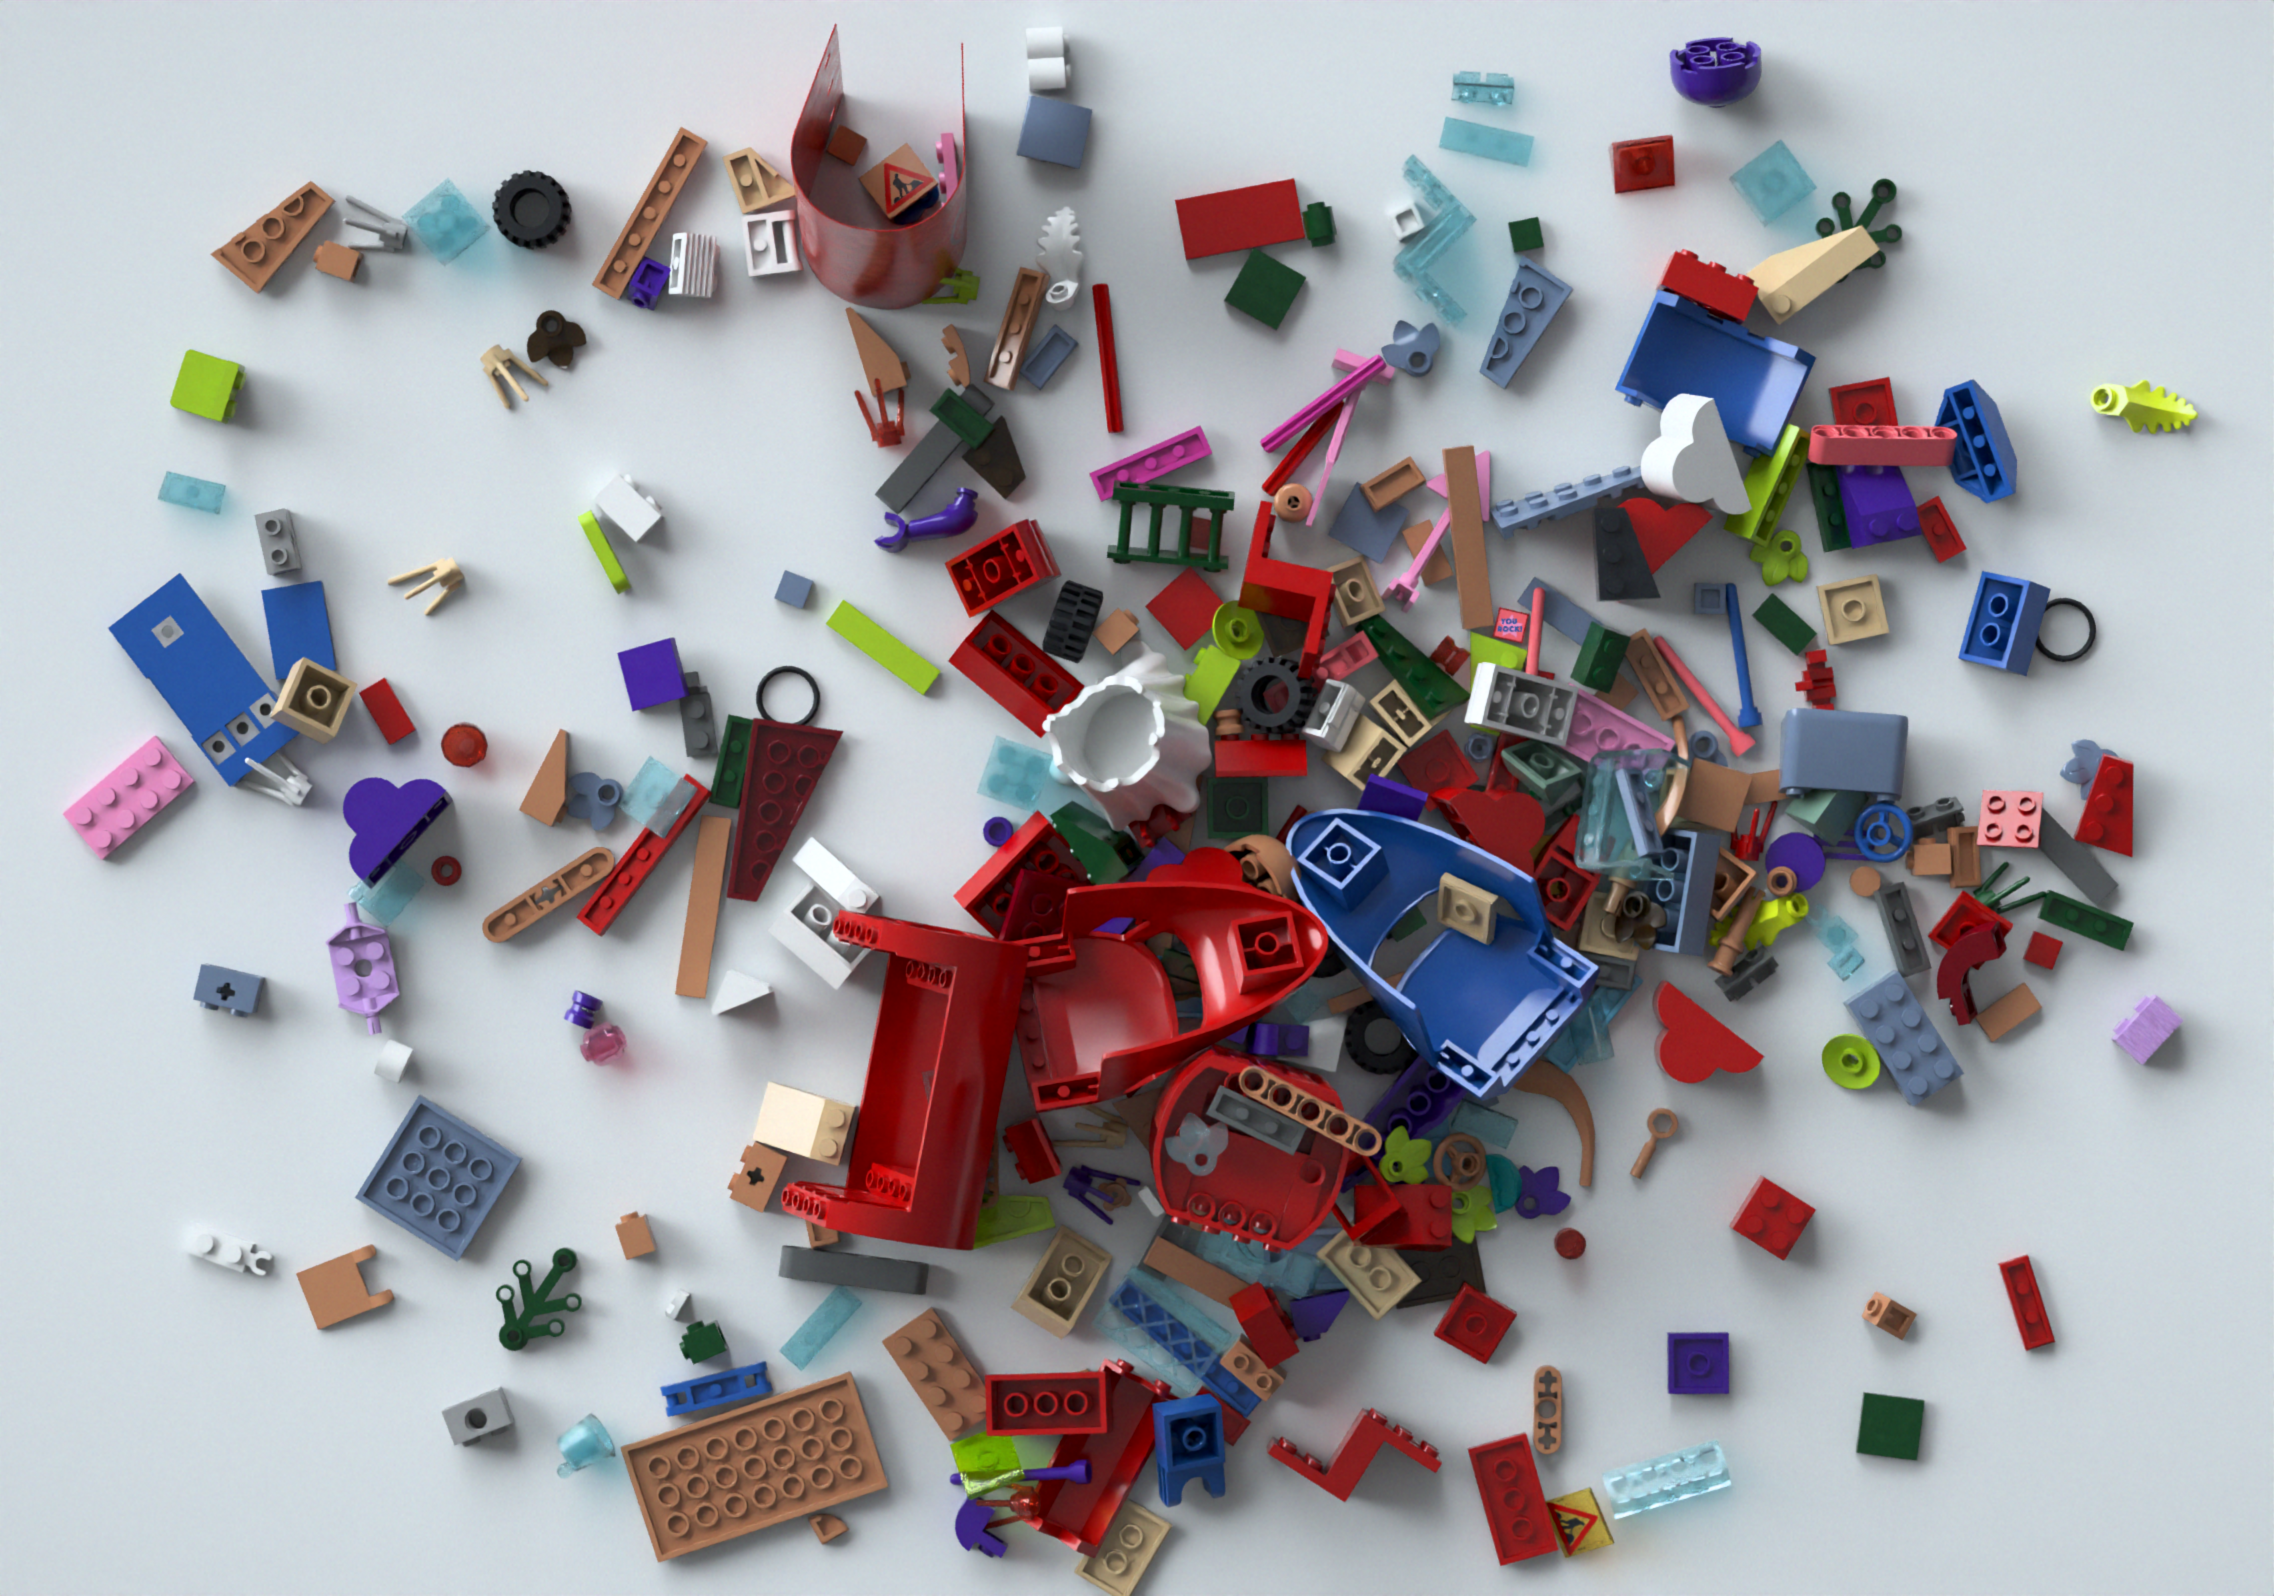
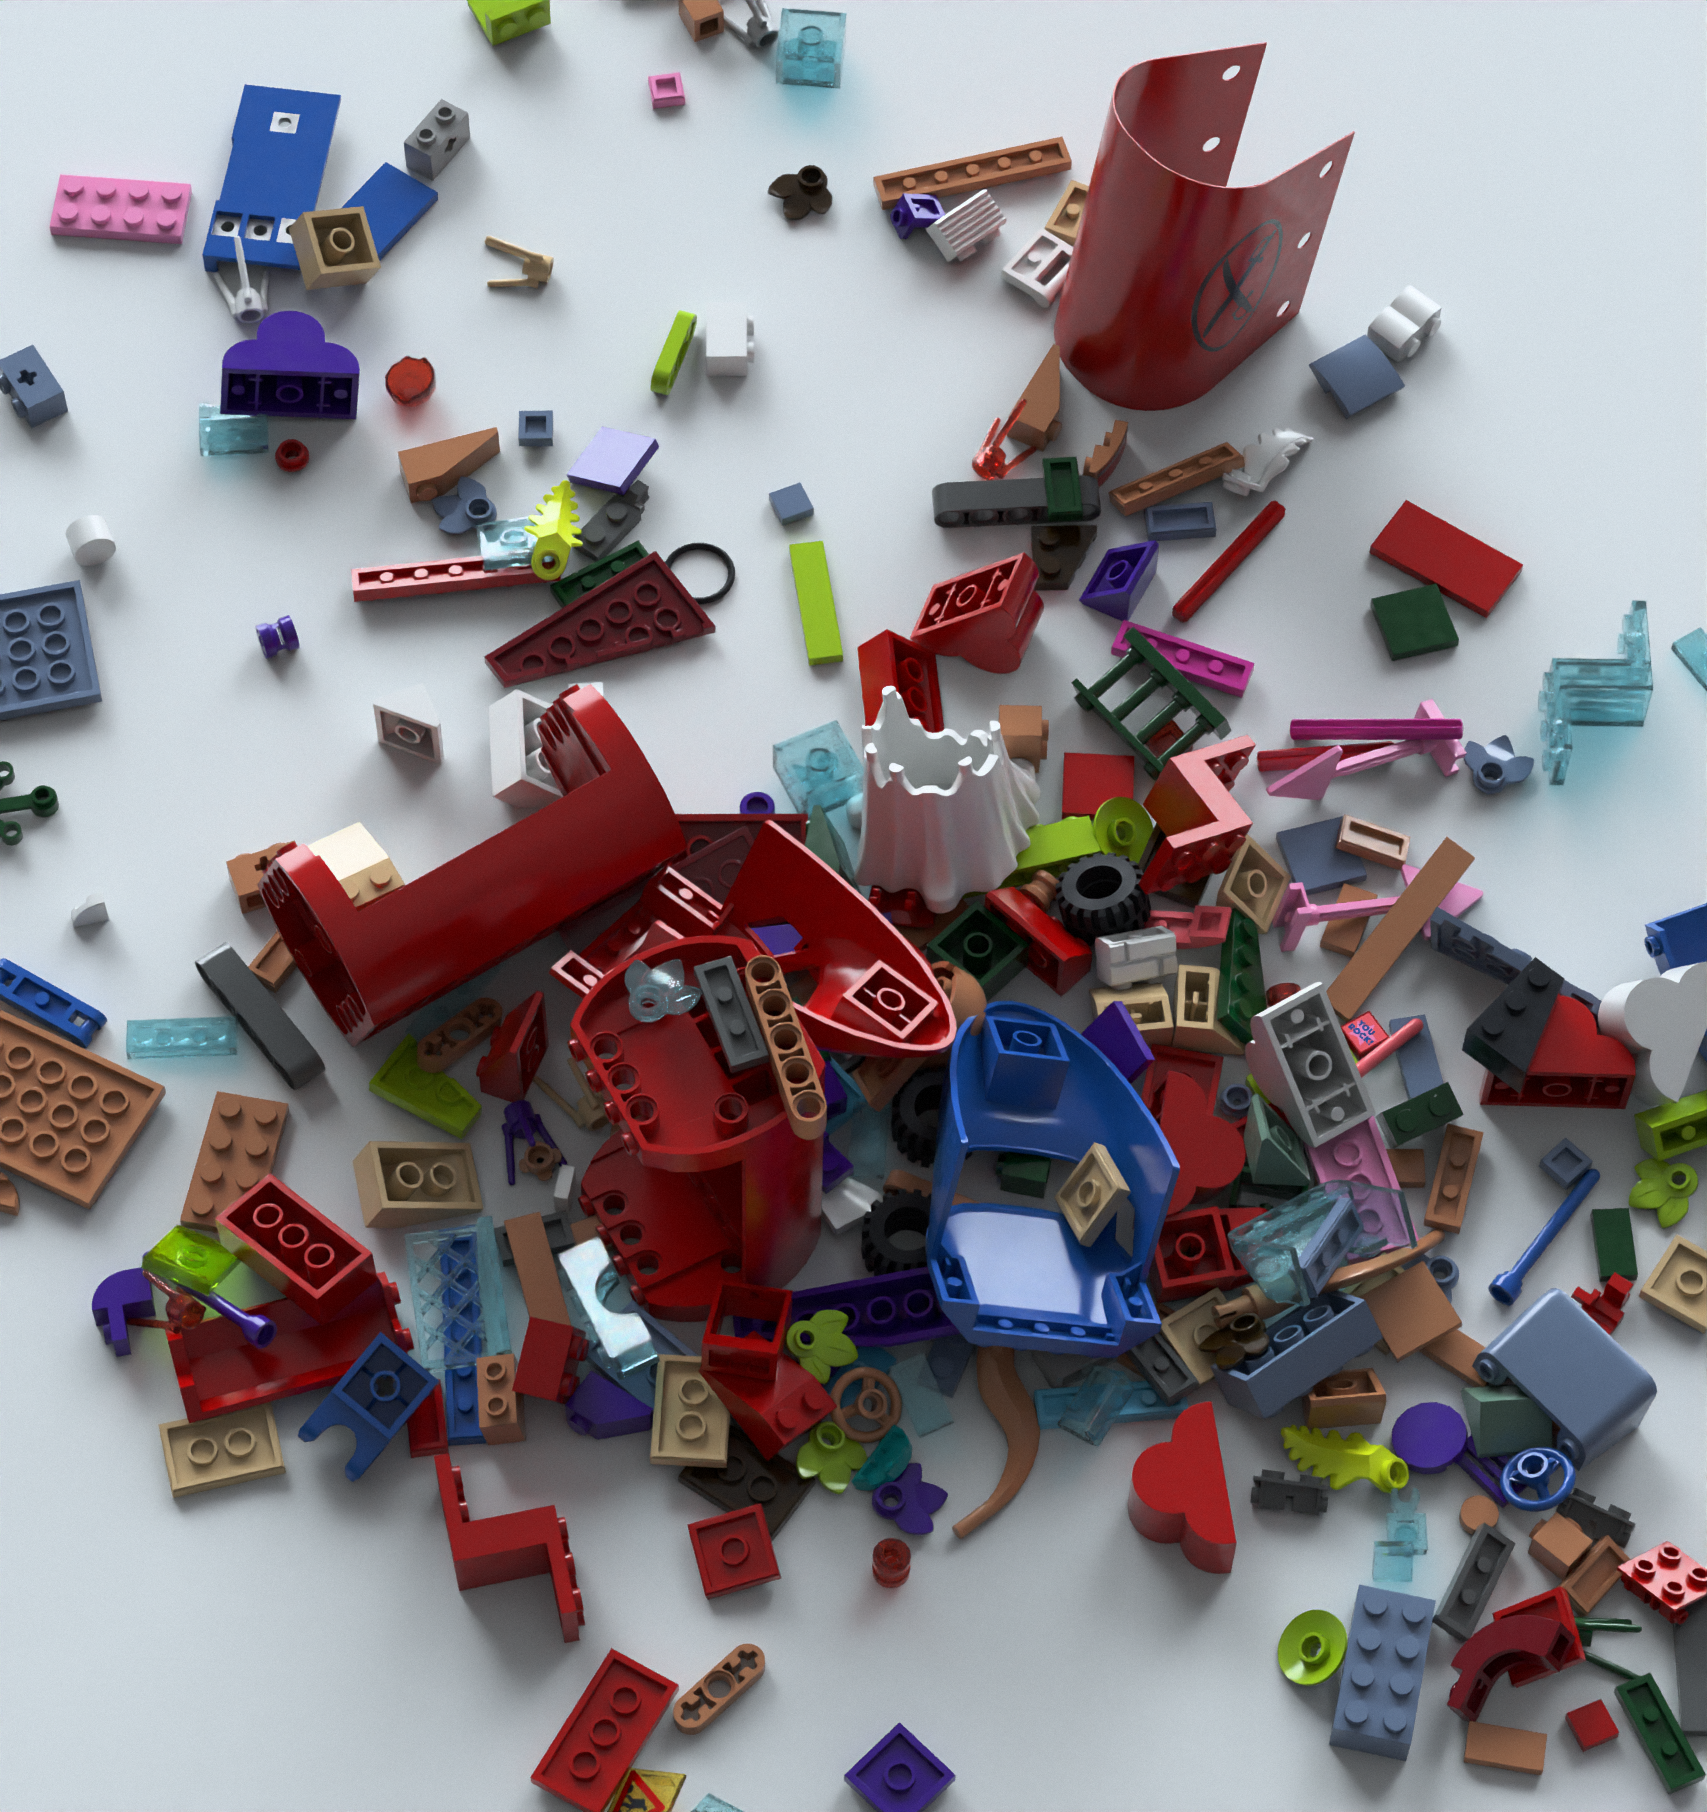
camera: 45 degrees right, 30 degrees down
(192, 492) = (412, 65): clear light blue slope -> none
(346, 949) = (156, 441): lavender plate -> none
(379, 344) = (666, 90): none -> bright pink tile
(387, 711) = (380, 317): red tile -> none
(497, 362) = (741, 171): tan plant -> none
(510, 194) = (884, 113): black tyre -> none
(523, 911) = (328, 534): nougat piece -> none
(577, 697) = (535, 428): none -> sand blue plate
(603, 1044) = (263, 672): clear pink head -> none
(635, 1235) = (119, 830): nougat brick -> none
(678, 769) = (554, 531): none -> neon yellow plant
(703, 906) = (464, 648): nougat tile -> none
(703, 1341) = (76, 956): dark green brick -> none
(950, 522) = (952, 548): dark purple piece -> none
(964, 285) = (1166, 416): lime plant -> none
(1054, 443) = (1122, 579): none -> dark purple slope
(1072, 621) = (983, 686): black tyre -> none
(1289, 514) = (1266, 772): nougat head -> none
(1319, 224) = (1510, 612): dark green brick -> none
(1525, 235) = (1682, 766): dark green tile -> none
(1529, 310) = (1629, 819): sand blue wing -> none
(1650, 1146) = (1049, 1555): nougat piece -> none
(1732, 945) = (1301, 1443): nougat pin -> none
(1738, 739) = (1478, 1299): coral piece -> none
(1750, 845) = (1400, 1385): red plant -> none
(1772, 883) = (1400, 1427): nougat plate -> none
(1772, 1218) = (1100, 1712): red brick -> none

